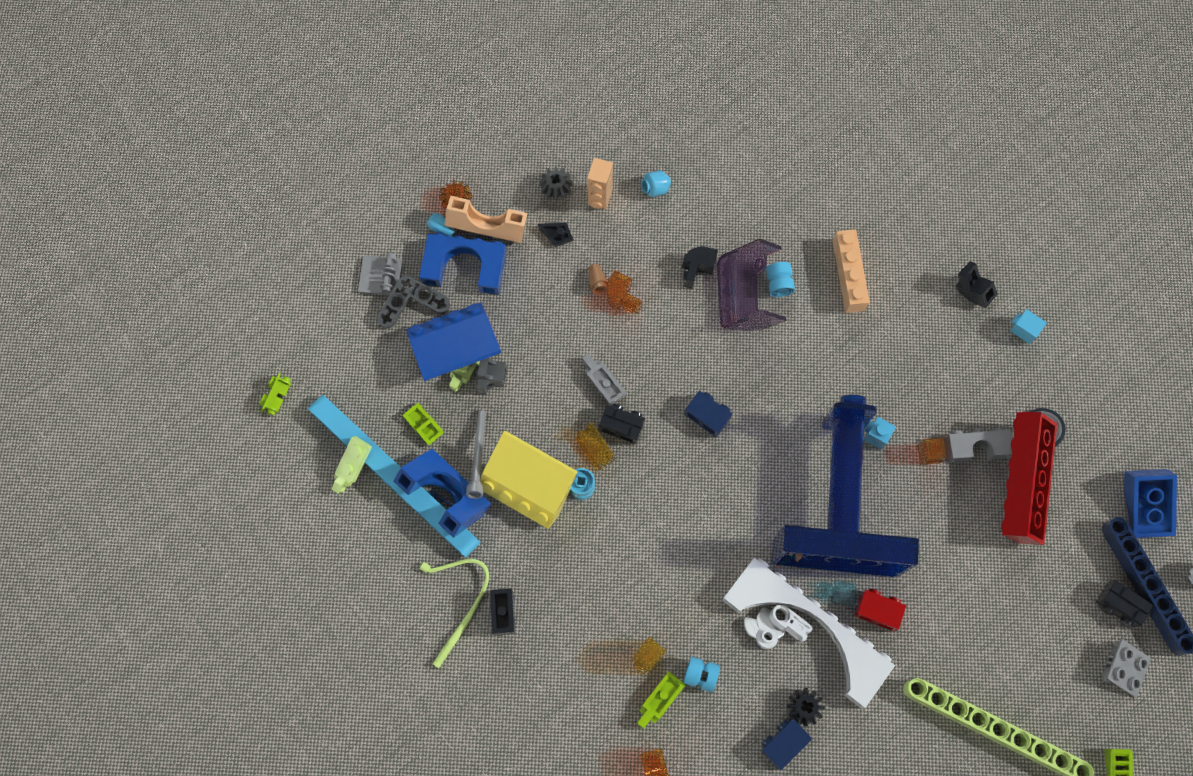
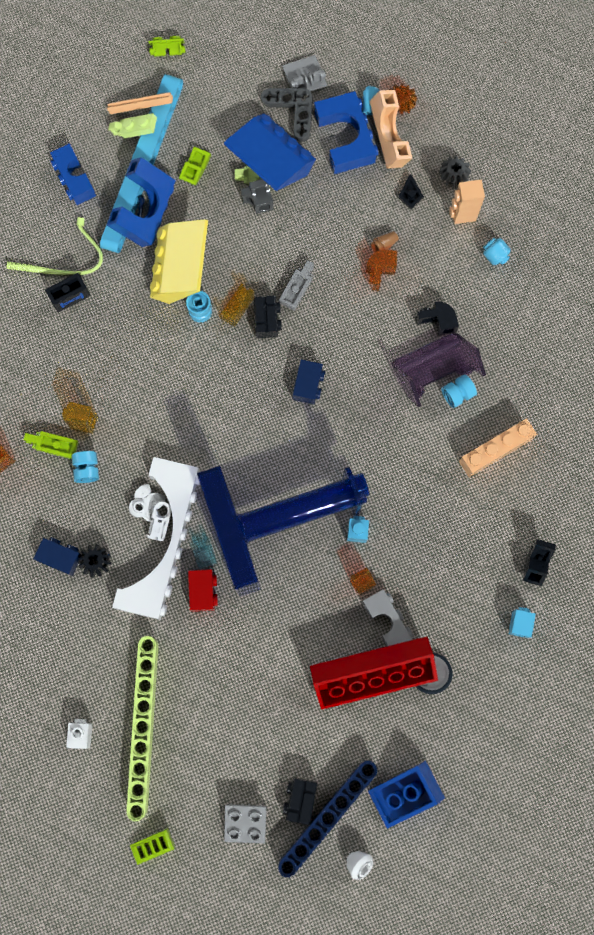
camera: 65 degrees right, 5 degrees up
(328, 447) = (140, 103): none -> light nougat axle
(388, 554) = (78, 186): none -> blue arch
(475, 488) = (154, 224): light grey piece -> none

